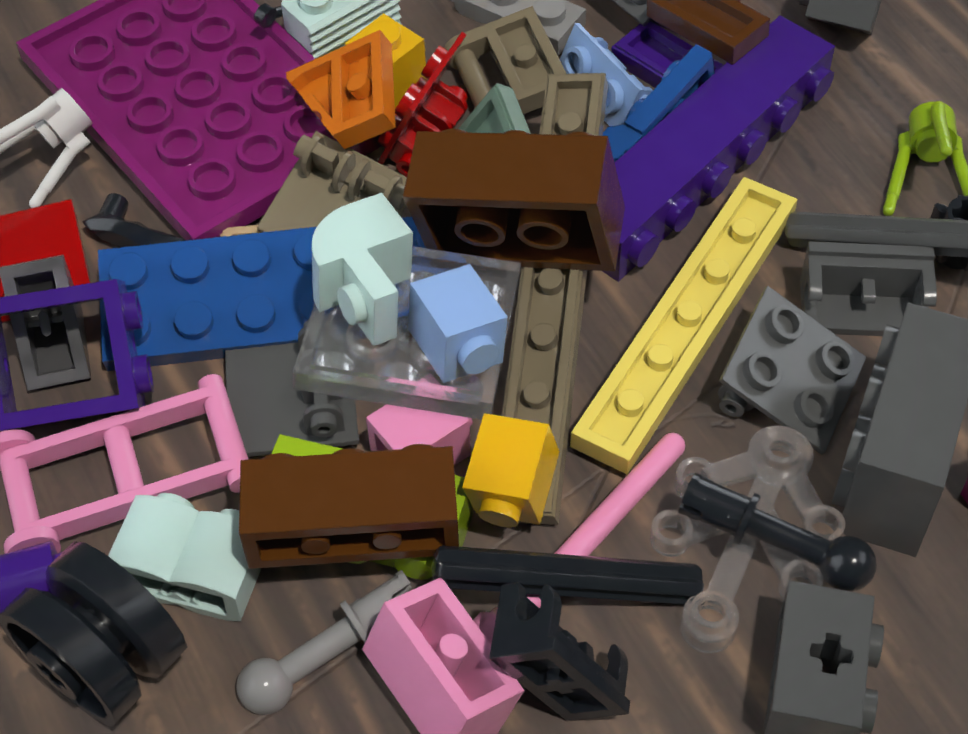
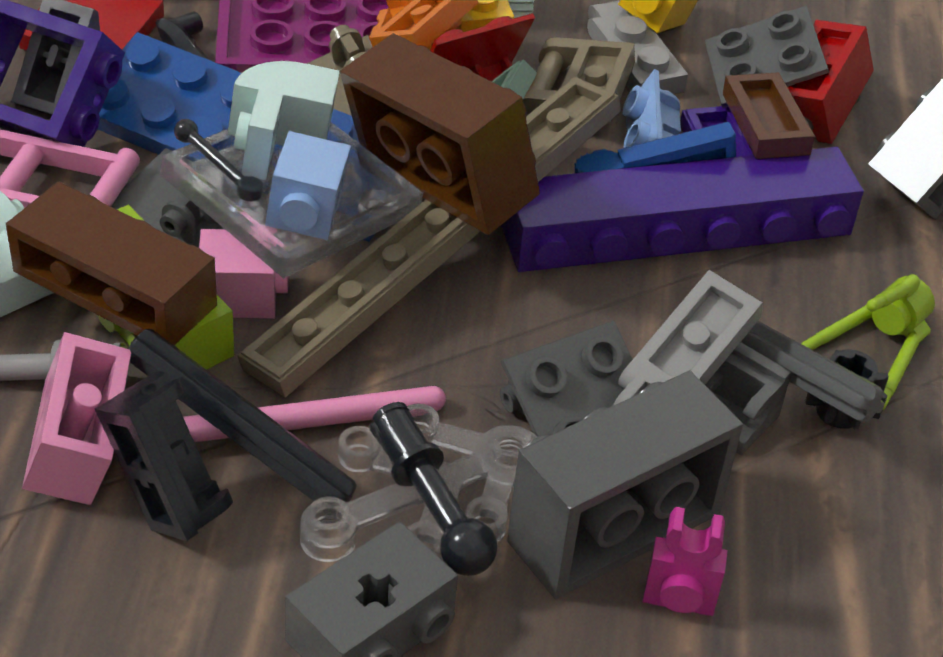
camera: 30 degrees right, 10 degrees down
(397, 355) = (248, 187): none -> black hinge
(511, 470) = (266, 322): yellow brick -> none
(682, 326) = (523, 320): light yellow plate -> none
(853, 280) = (694, 336): none -> light grey hinge

